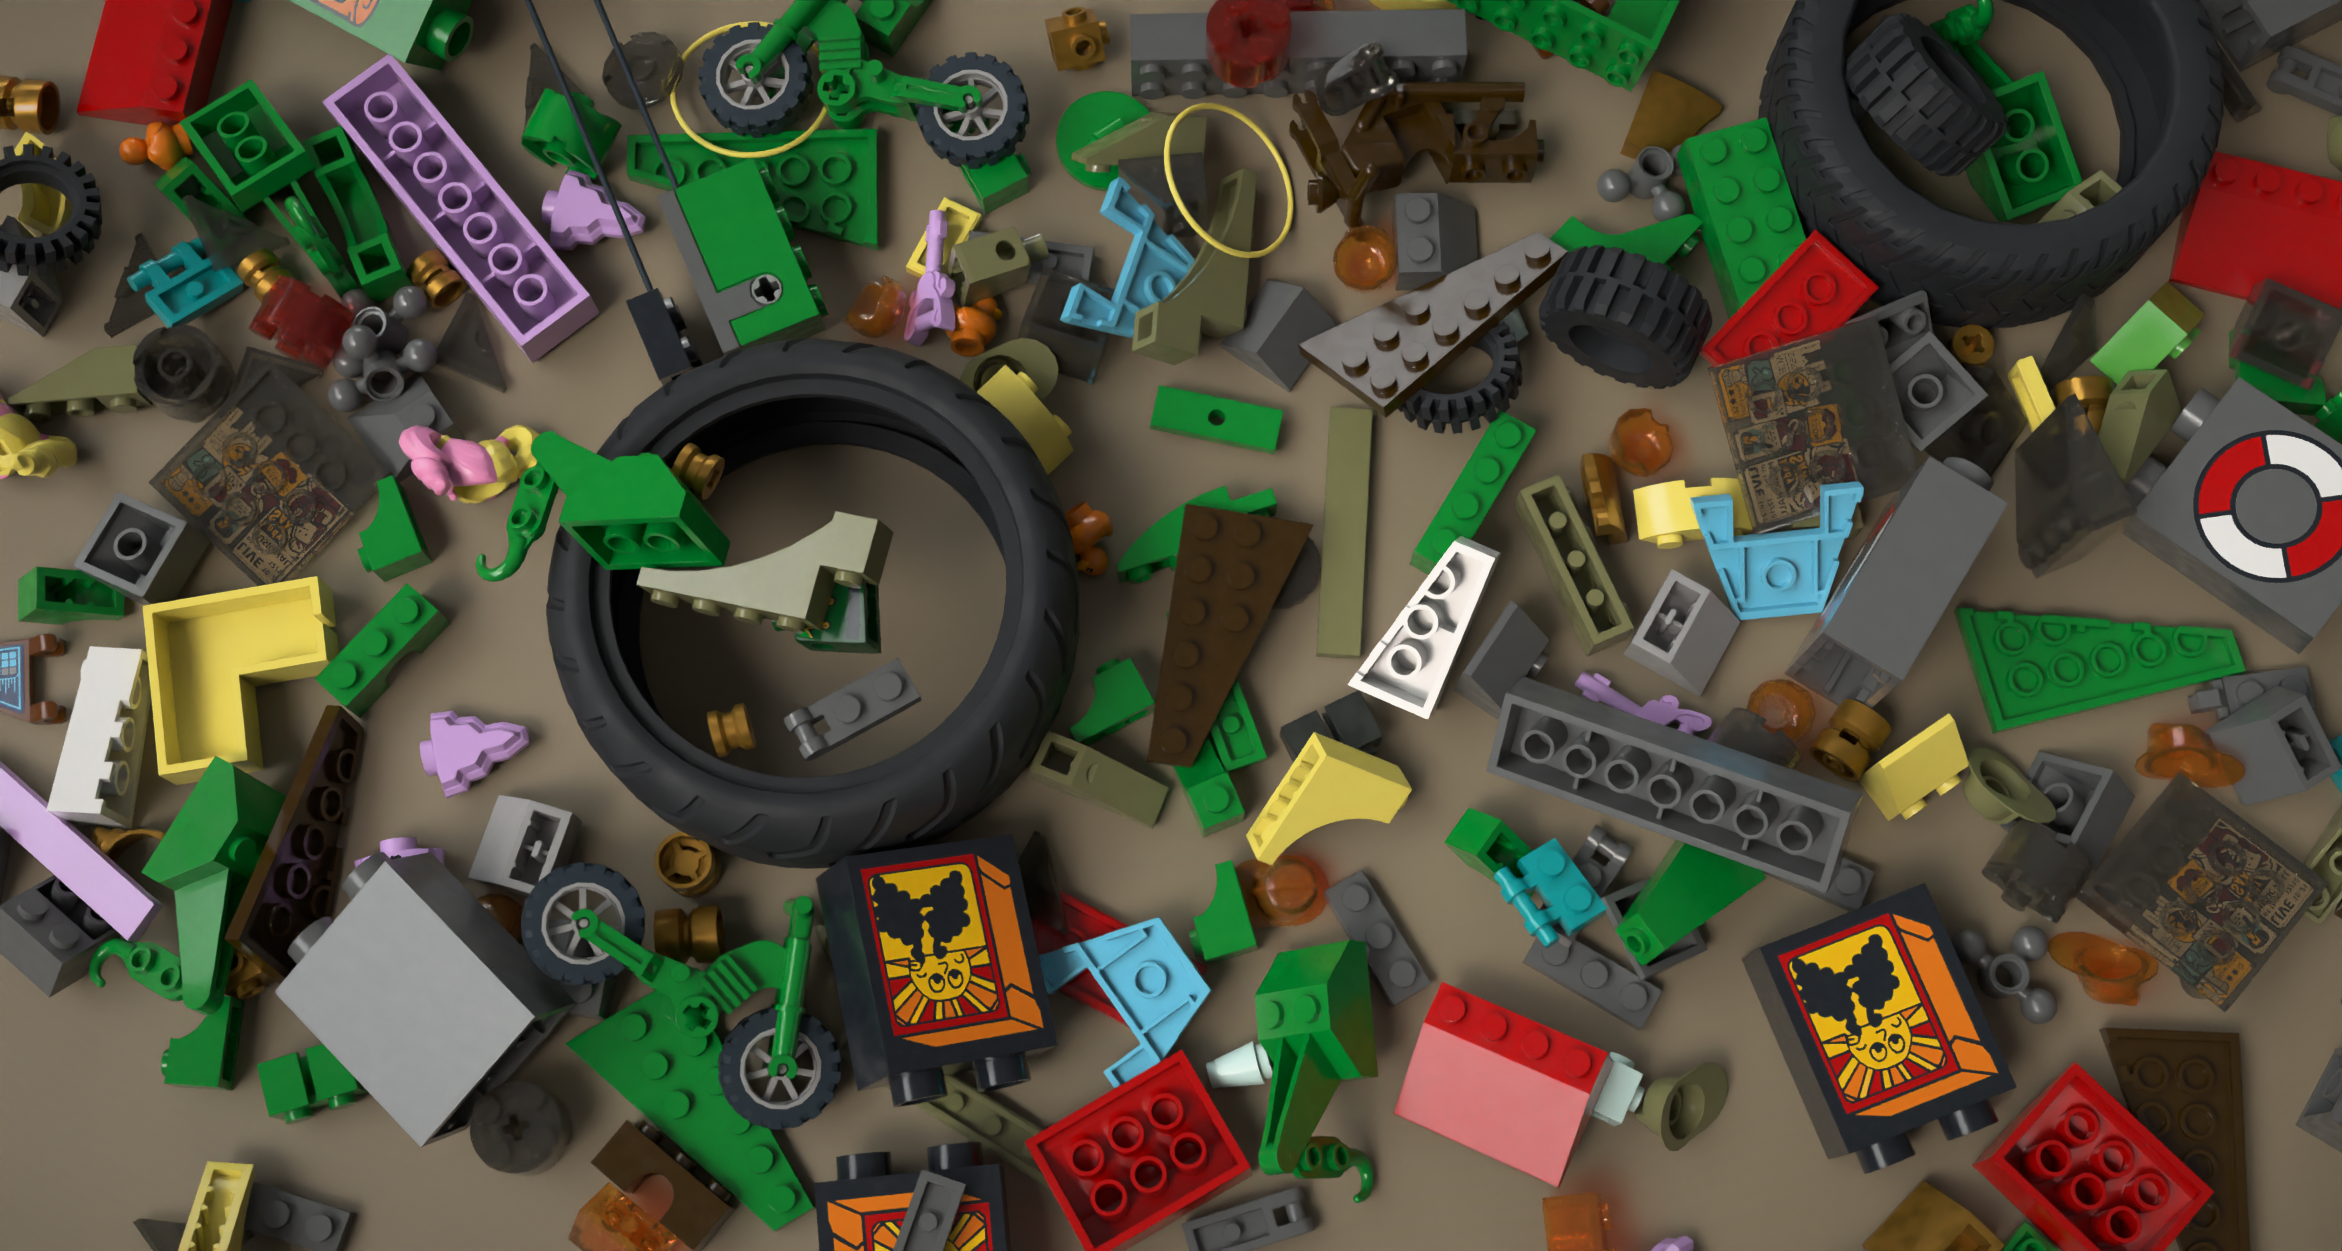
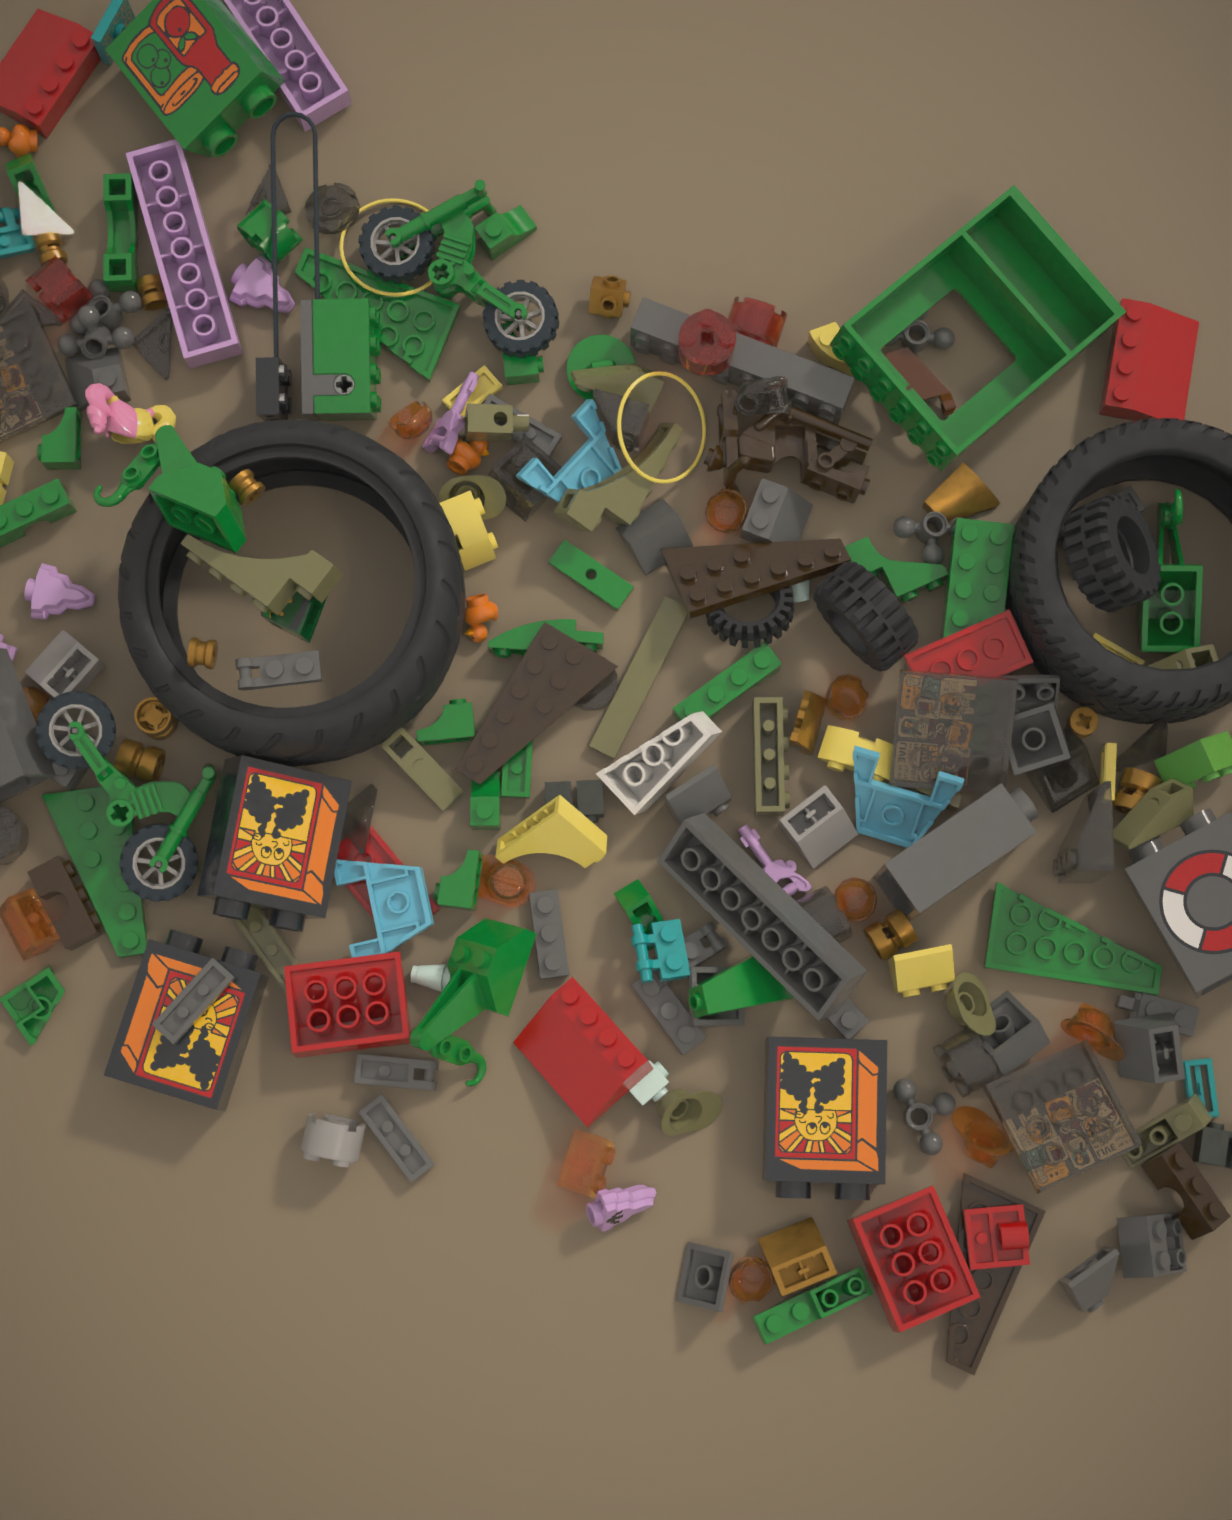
camera: 25 degrees right, 5 degrees up
(258, 157) = (71, 174): green slope -> none
(2194, 1096) = (996, 1237): none -> red plate

